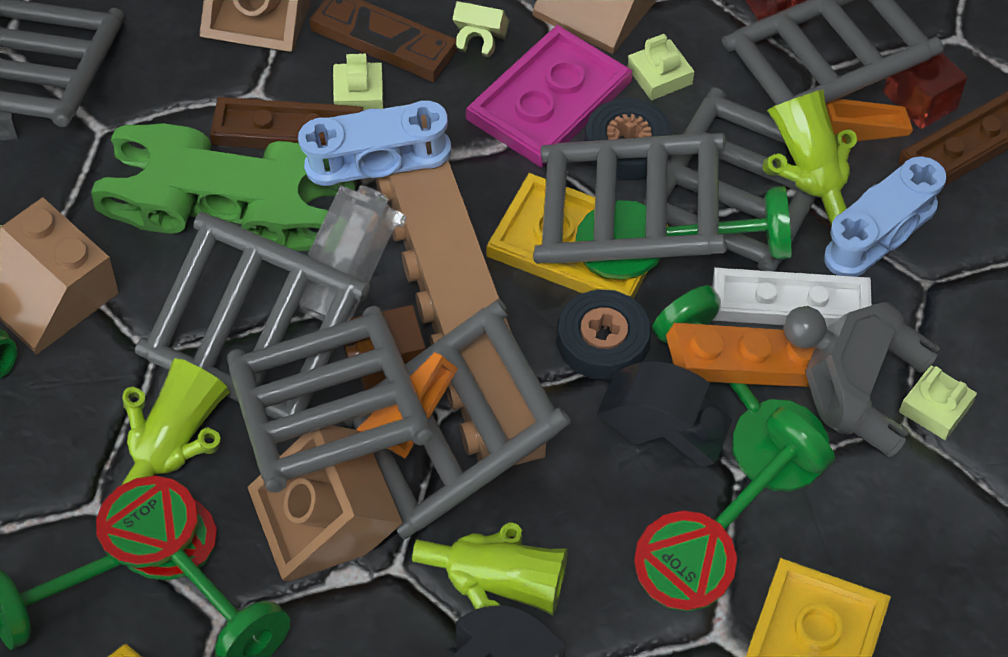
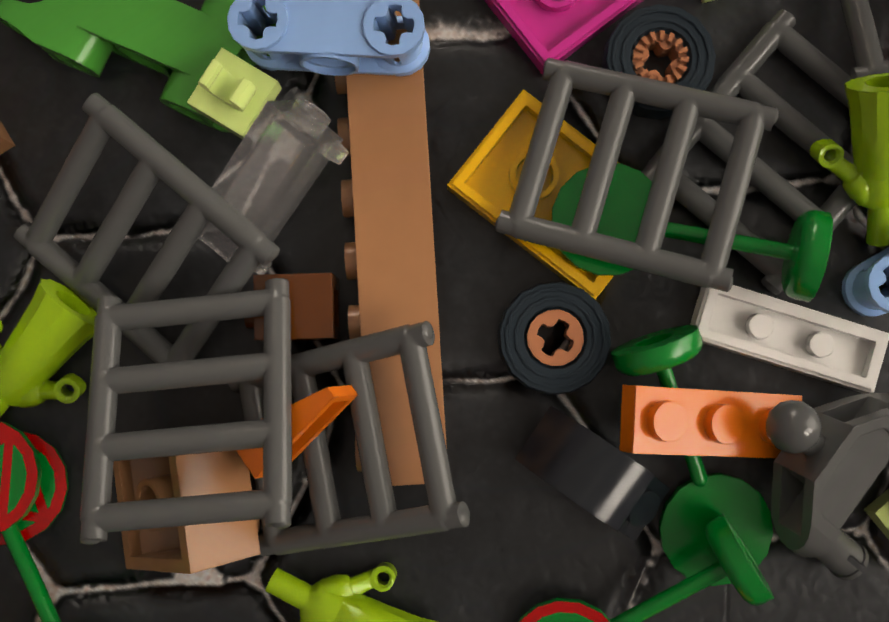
camera: 15 degrees right, 30 degrees up
(304, 201) = (233, 93): none -> yellowish green tile

